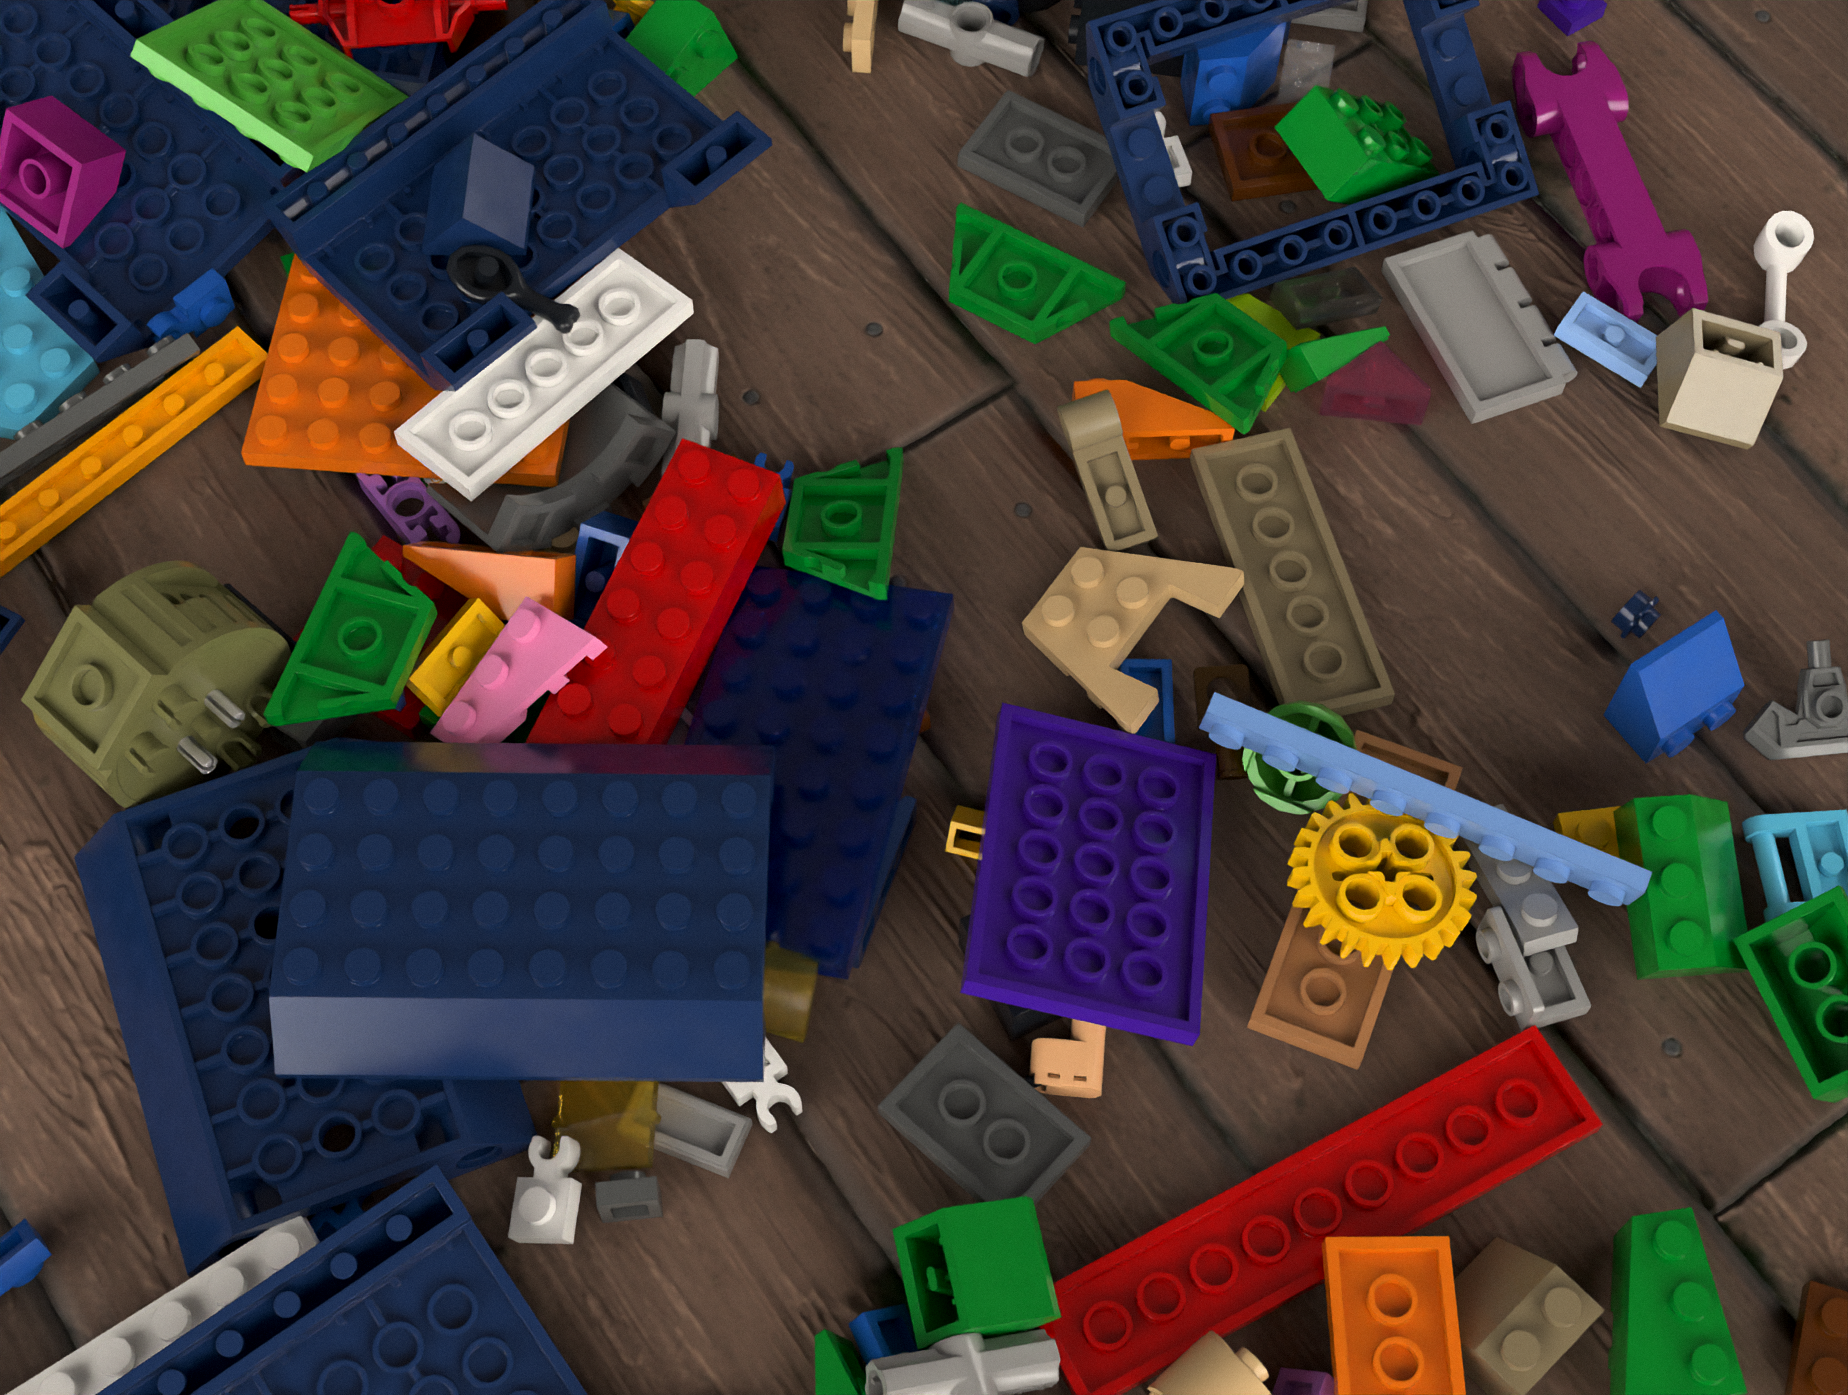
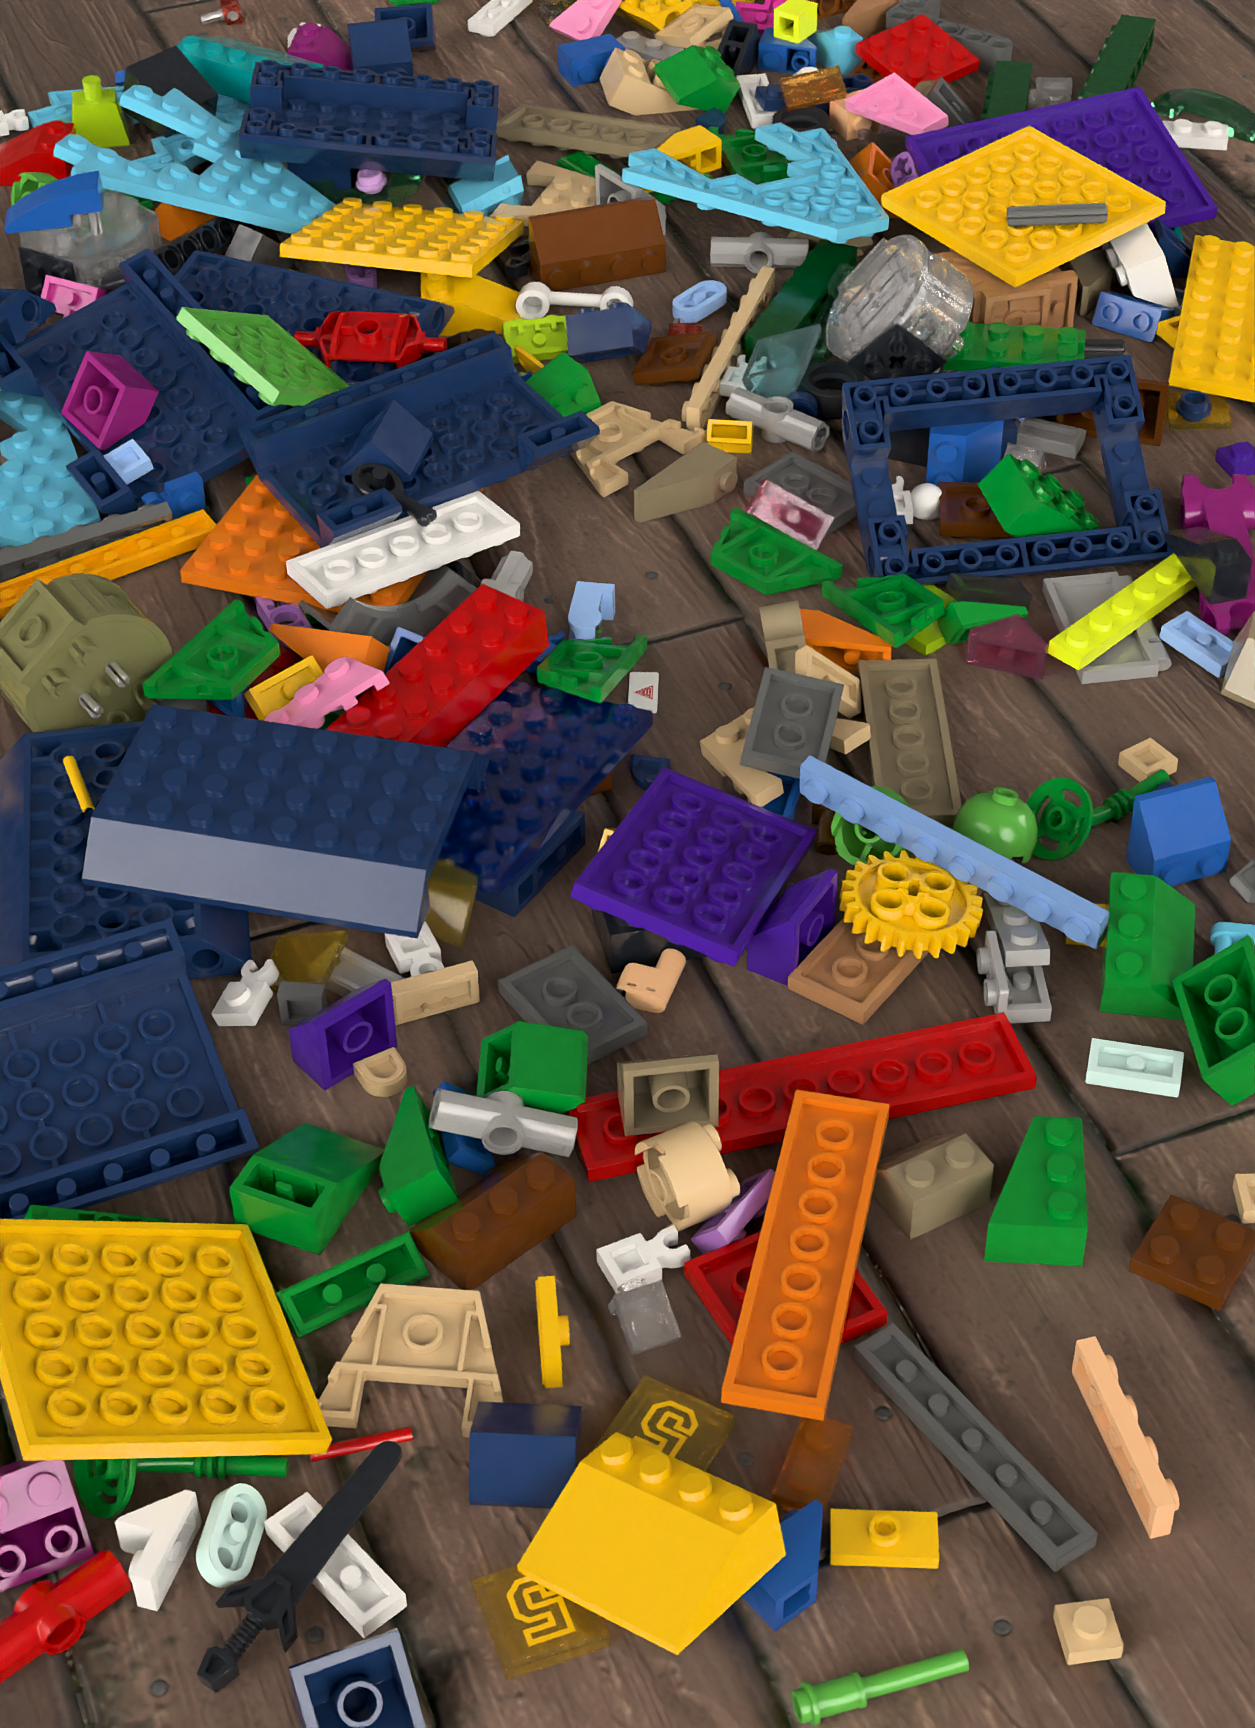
camera: 15 degrees right, 20 degrees down
(112, 270) = (129, 461): none -> light blue plate
(218, 894) = (78, 783): none -> yellow piece
(700, 1243) = (345, 1034): none -> dark purple slope
(764, 1285) = (382, 1073): none -> tan tile
(769, 88) = (626, 432): none -> tan wing
(797, 1140) = (435, 992): none -> tan plate
(814, 407) = (588, 608): none -> light blue leg
(886, 166) = (686, 484): none -> dark tan slope
(915, 62) = (730, 435): none -> yellow piece
(920, 541) = (643, 690): none -> white sticker
(969, 686) = (646, 769): none -> dark blue tile
(1034, 208) = (789, 514): none -> clear pink slope
(1151, 599) = (790, 722): none -> dark grey plate
(1164, 1274) = (668, 1092): none -> dark tan slope
(1168, 503) = (813, 664): none -> tan plate
(1200, 144) = (926, 501): none -> white piece
(1240, 936) = (794, 927): none -> dark purple slope
(1445, 718) = (999, 823): none -> bright green cylinder
(1509, 298) = (1122, 614): none -> neon yellow plate
(1532, 675) = (1065, 821): none -> green dish
(1595, 553) = (1147, 759): none -> tan plate
(1603, 211) = (1213, 561): none -> black slope
(1713, 1077) = (1135, 1067): none -> light aqua plate

